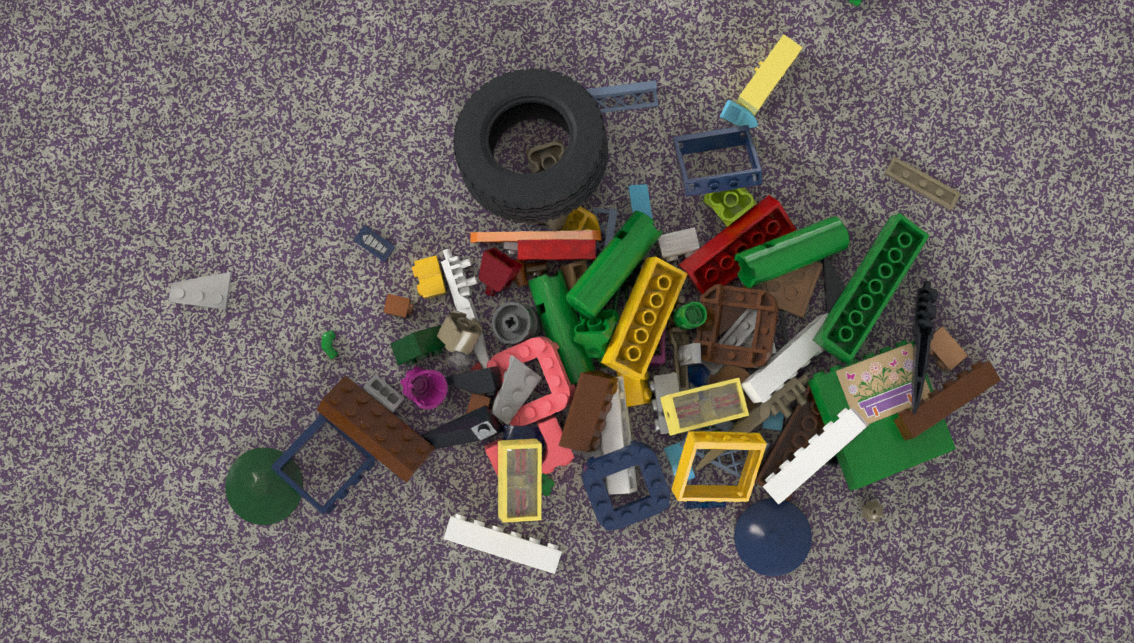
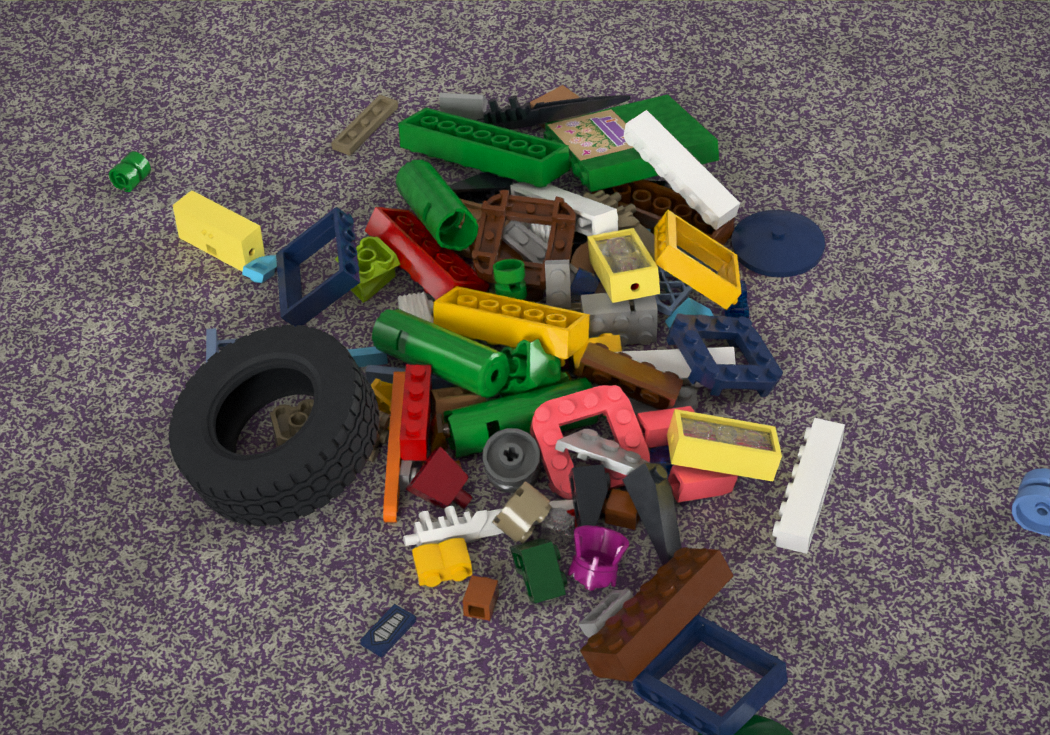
camera: 85 degrees left, 40 degrees down
(326, 344) = (532, 685): green arm -> none
(872, 511) = (741, 162): dark tan plant -> none
(947, 399) = (593, 81): reddish brown brick -> none
(949, 268) = (463, 105): none -> light grey slope

